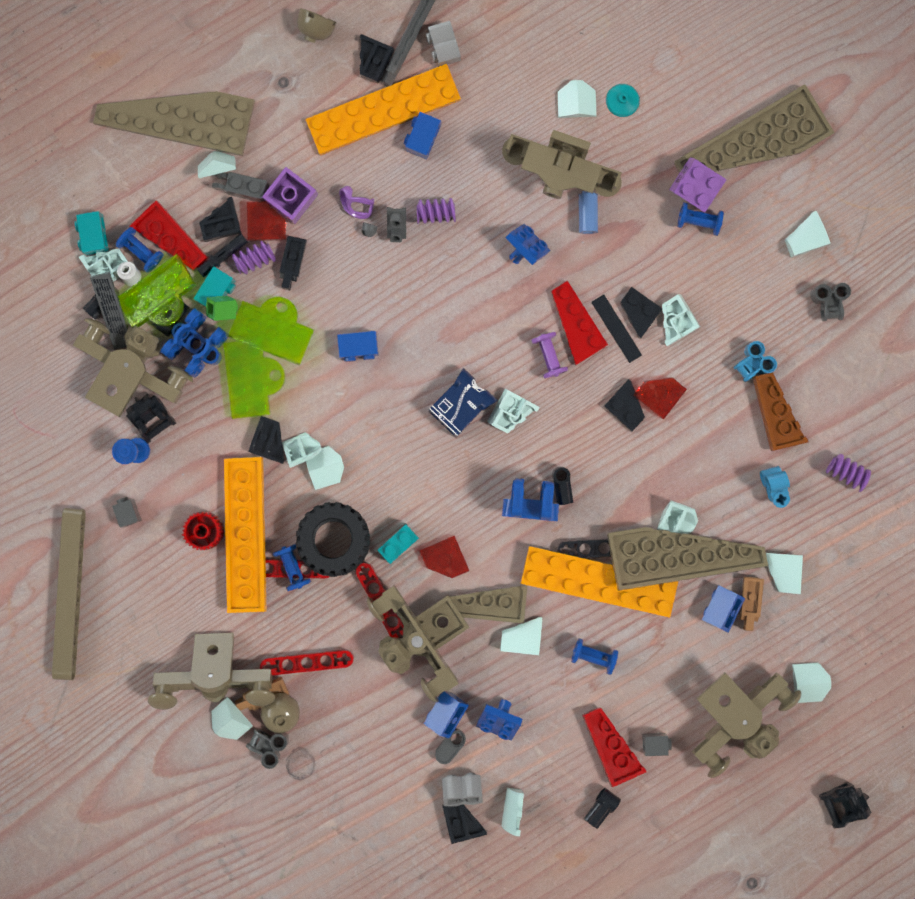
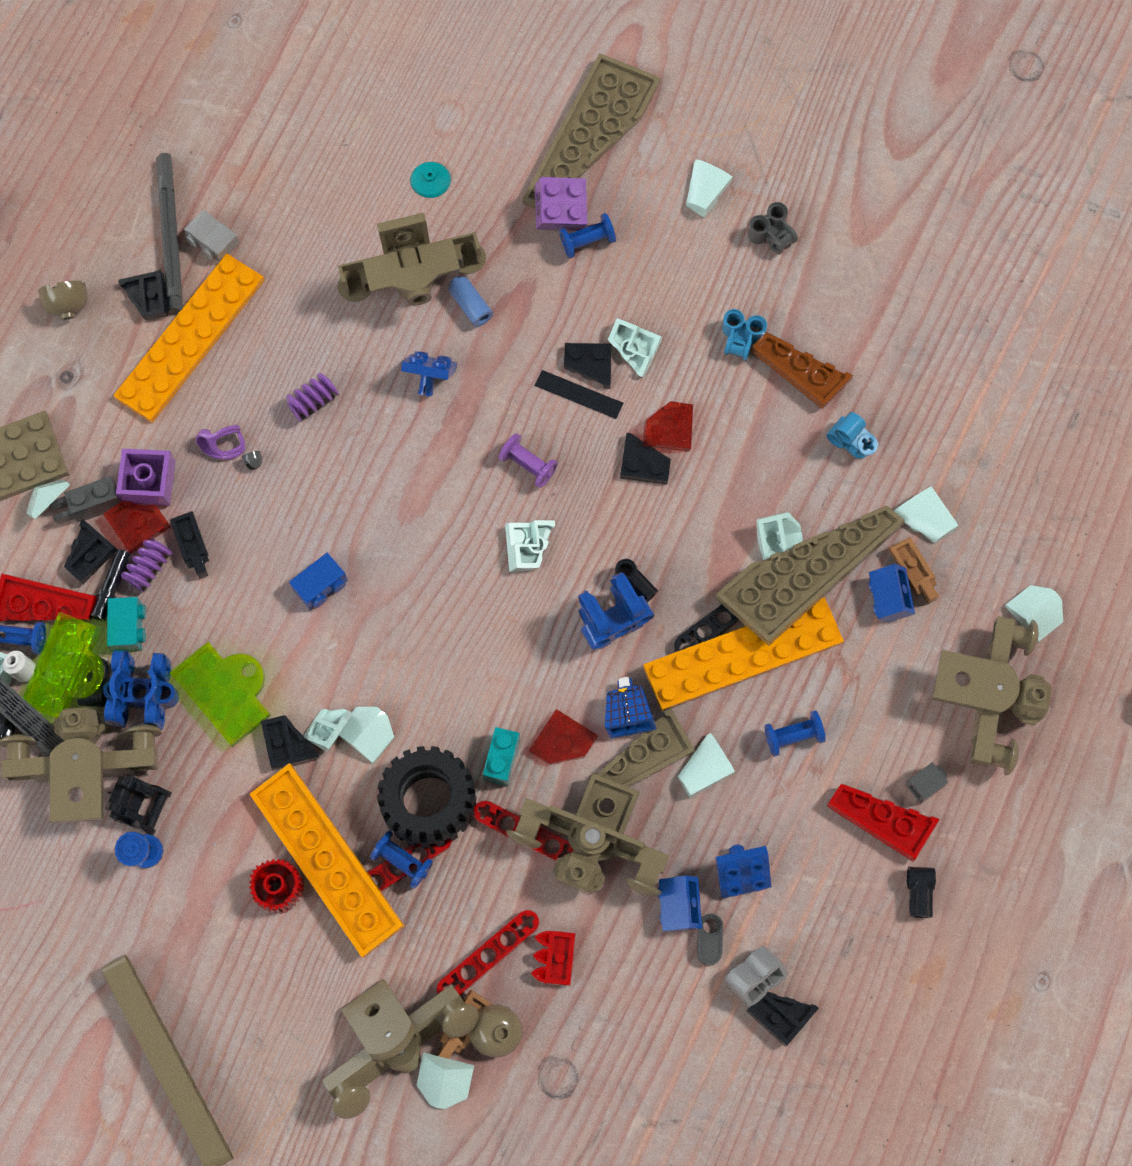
camera: 30 degrees left, 15 degrees down
(126, 512) = (176, 925): dark grey brick -> none
(221, 308) = (144, 633): bright green brick -> none
(267, 745) = (505, 1079): dark grey piece -> none
(272, 330) = (214, 624): clear neon green plate -> none
(347, 693) = (556, 957): none -> red plate
(396, 224) = (277, 433): dark grey hips -> none
(422, 135) = (248, 334): blue brick -> none
(461, 403) = (469, 569): dark blue piece -> none
(498, 569) = (627, 710): none -> blue torso
(512, 811) = (827, 960): light aqua slope -> none
(576, 100) = (383, 204): light aqua slope -> none
(581, 332) = (539, 416): red wing -> none
(849, 471) = (915, 375): medium lavender piece -> none

